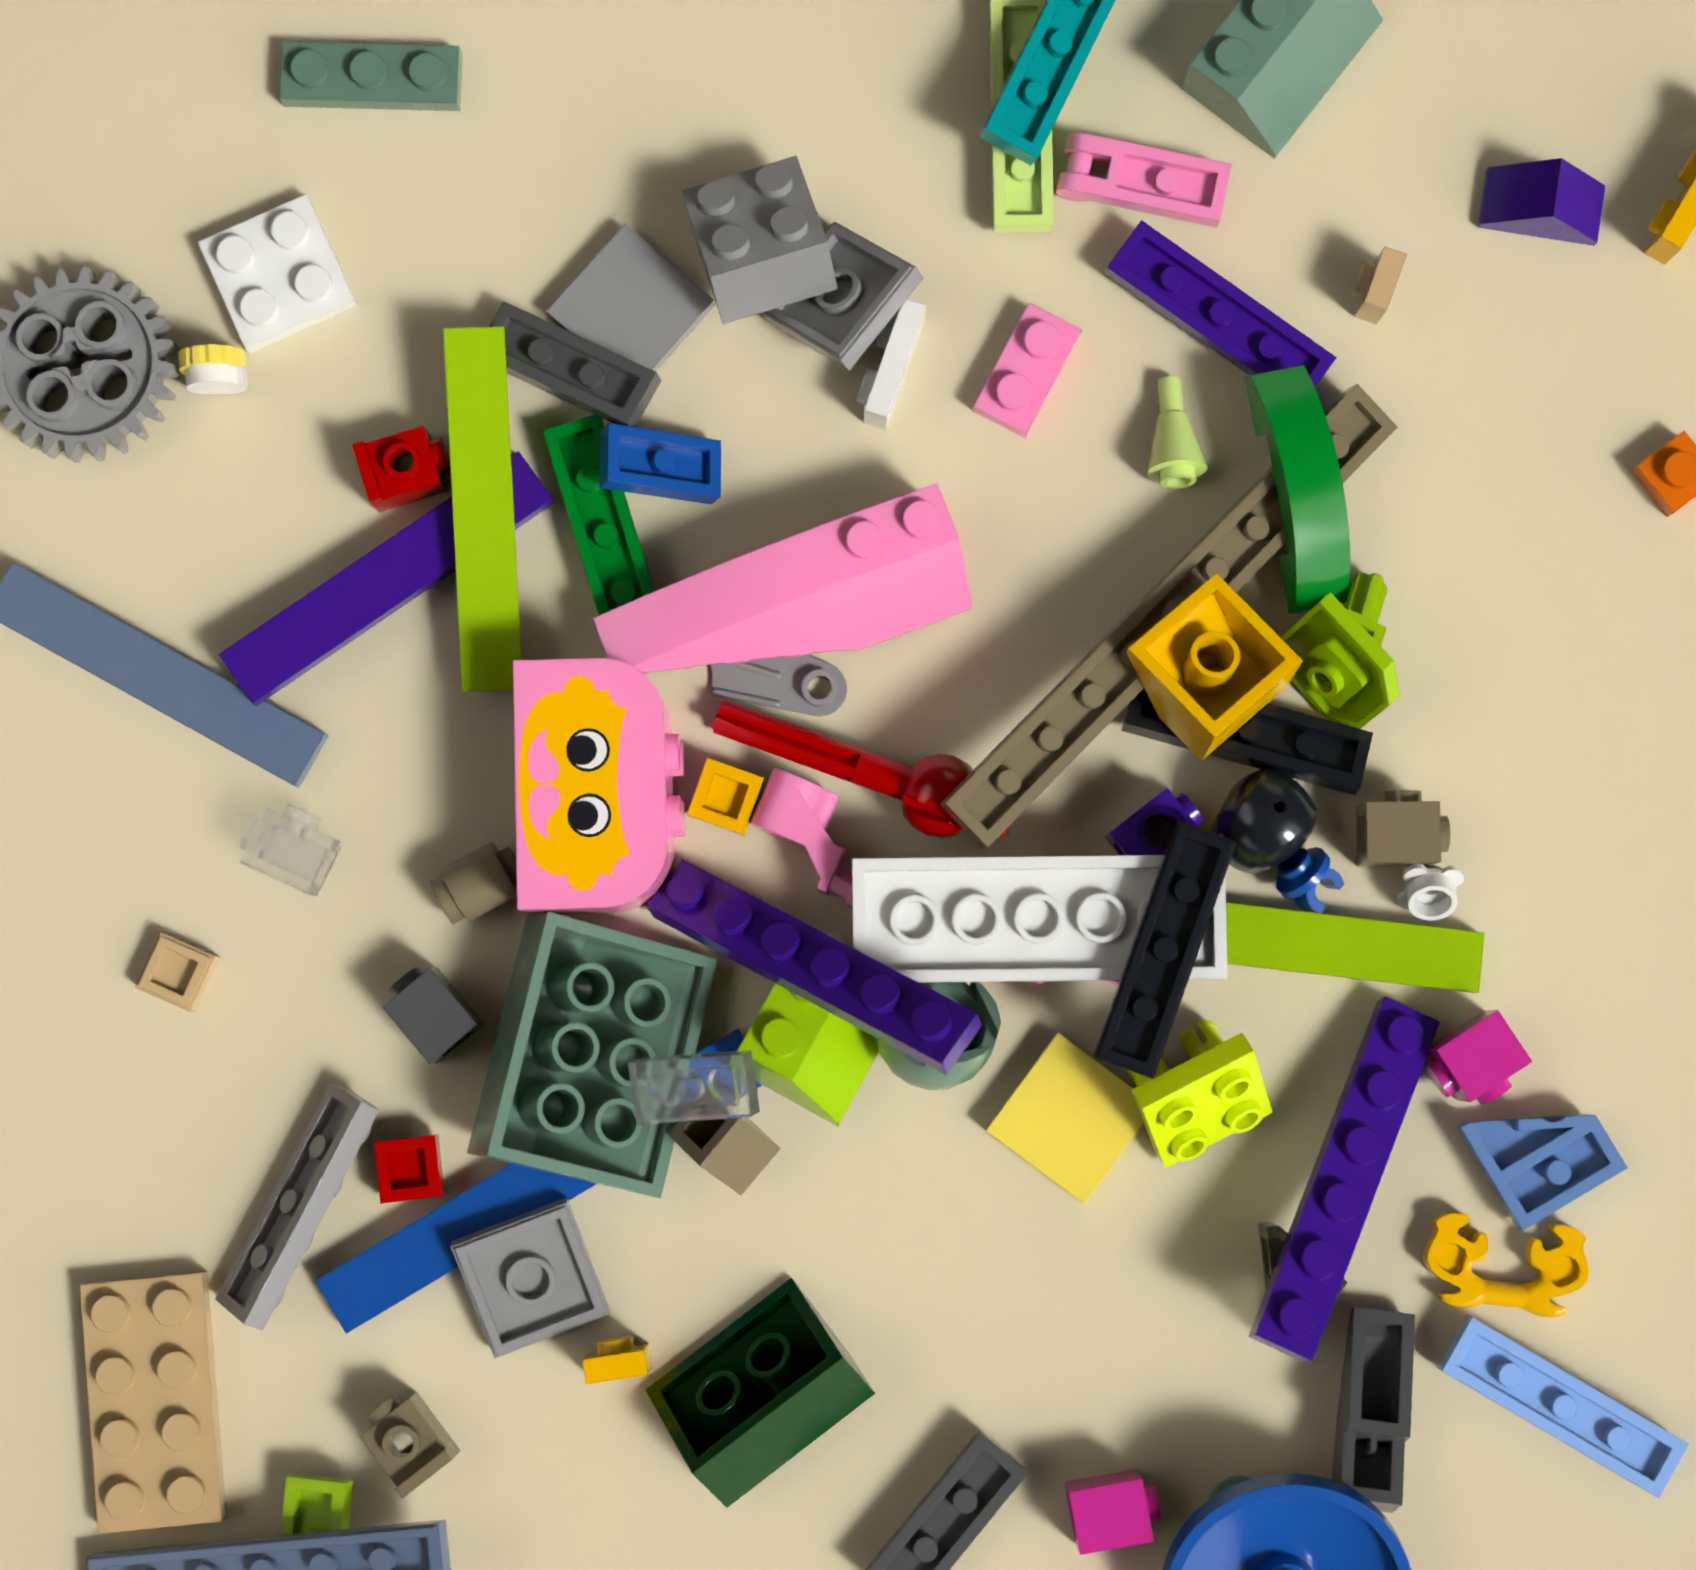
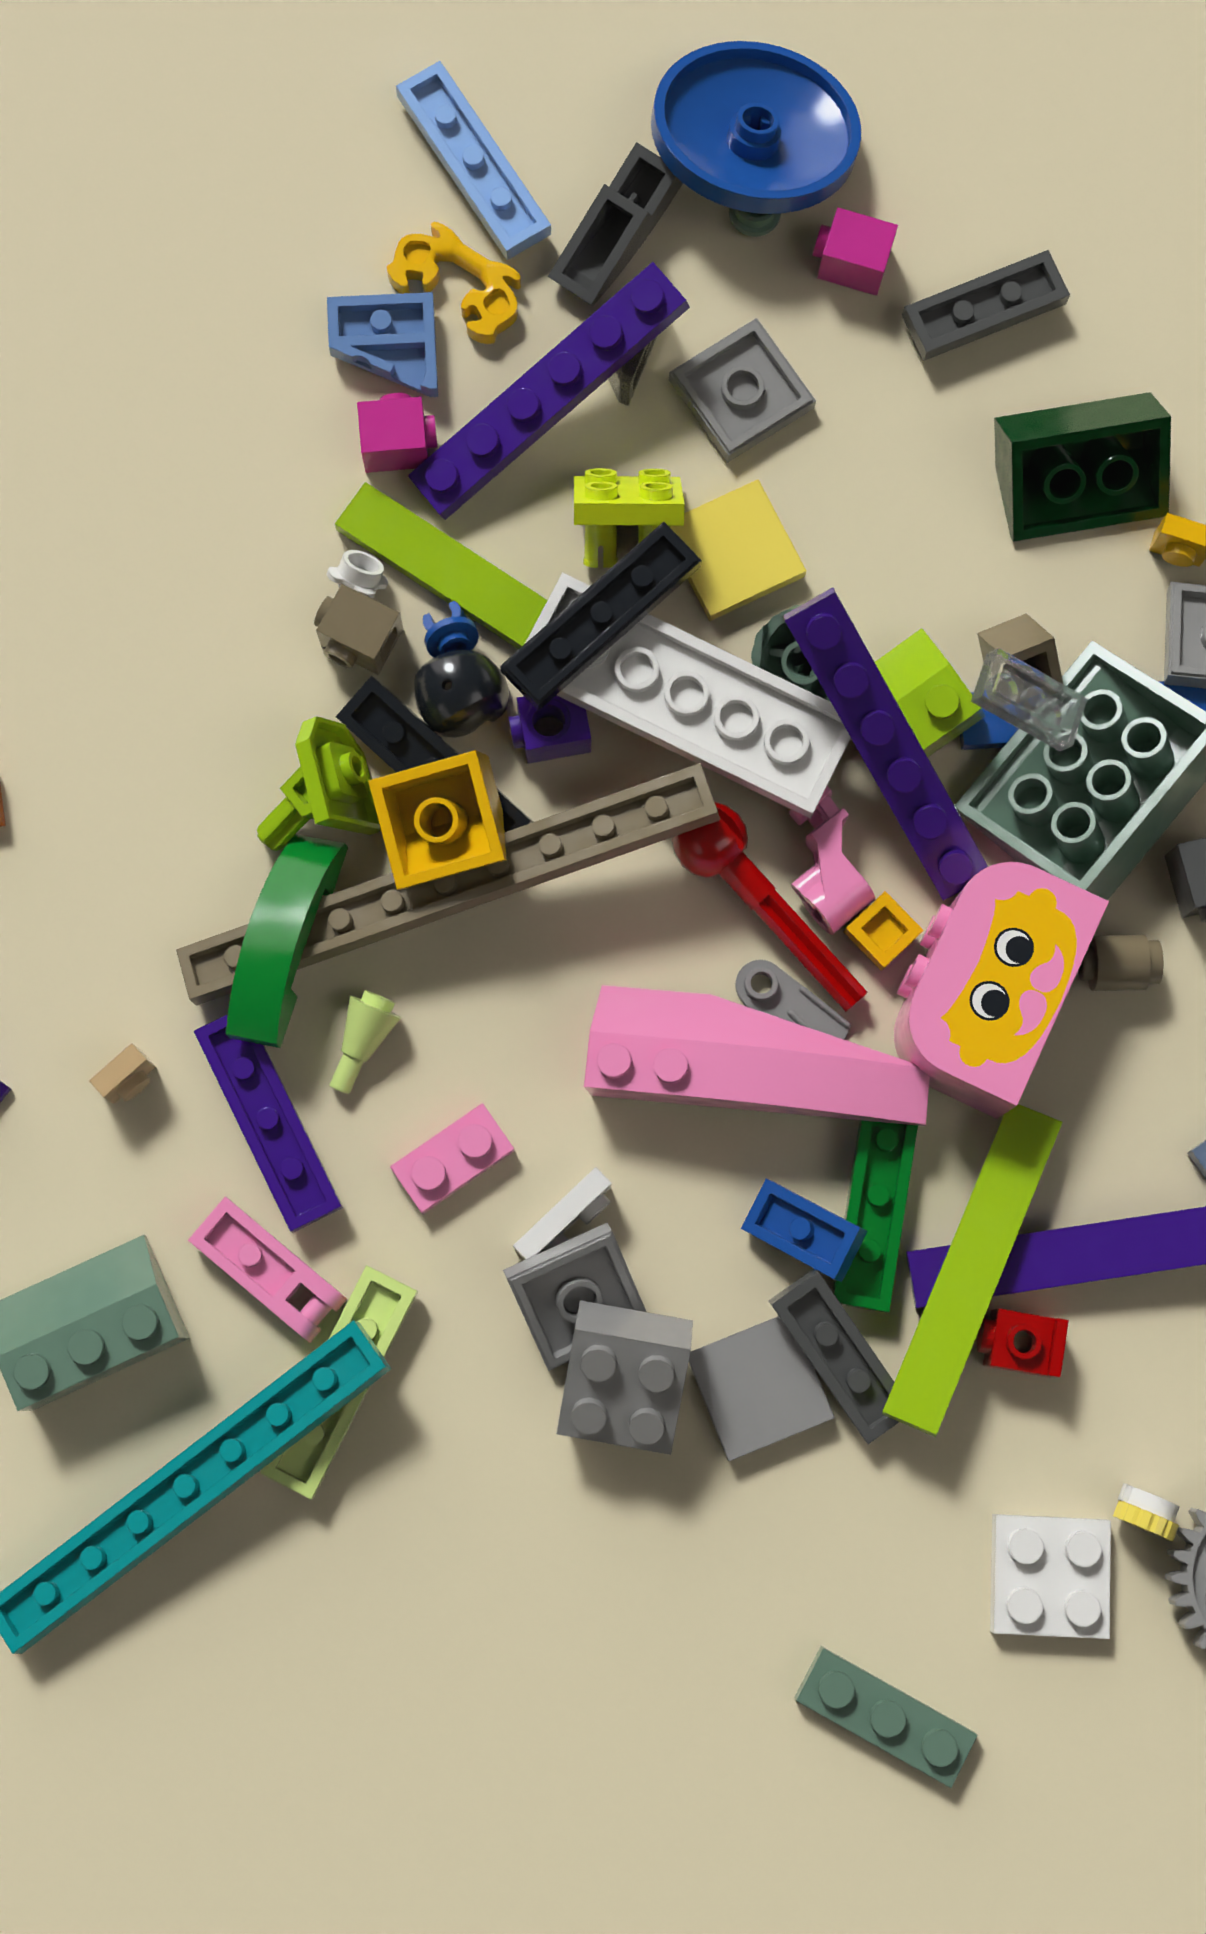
camera: 160 degrees left, 5 degrees down
(1150, 1298) = (742, 390): none -> light grey tile

